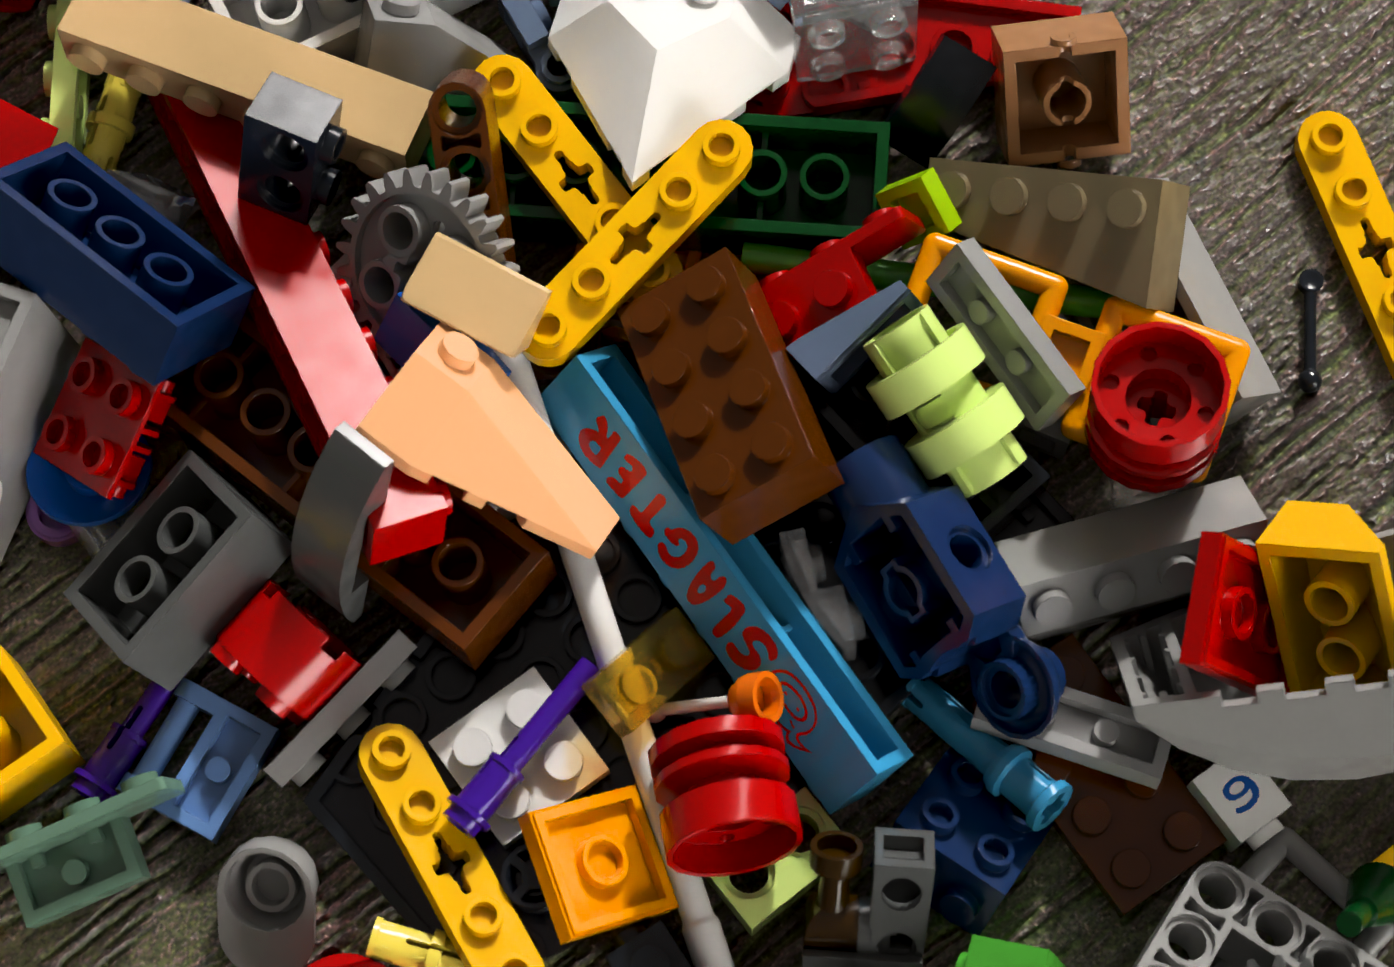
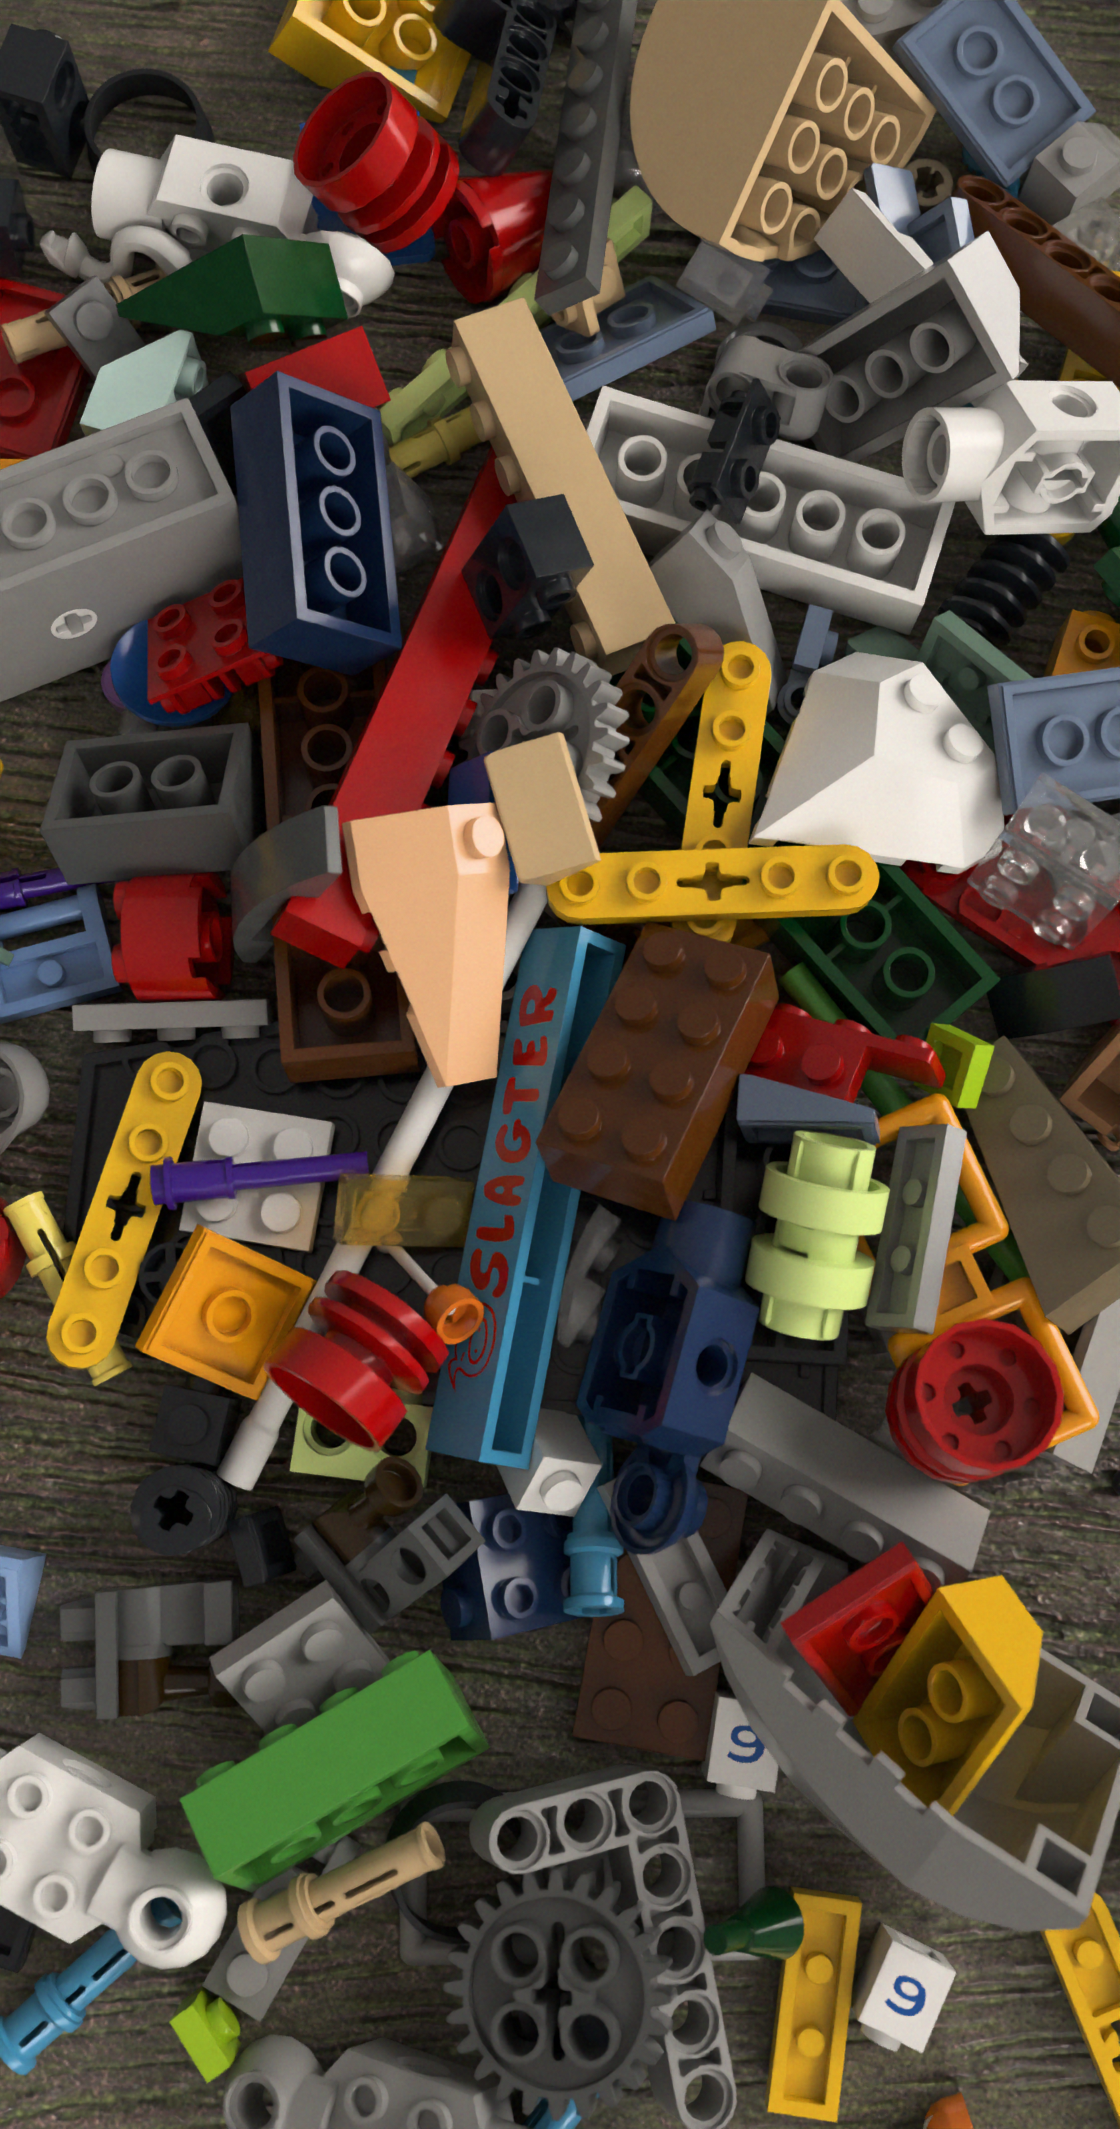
camera: 40 degrees right, 5 degrees up
(936, 740) = (559, 1467): none -> white brick

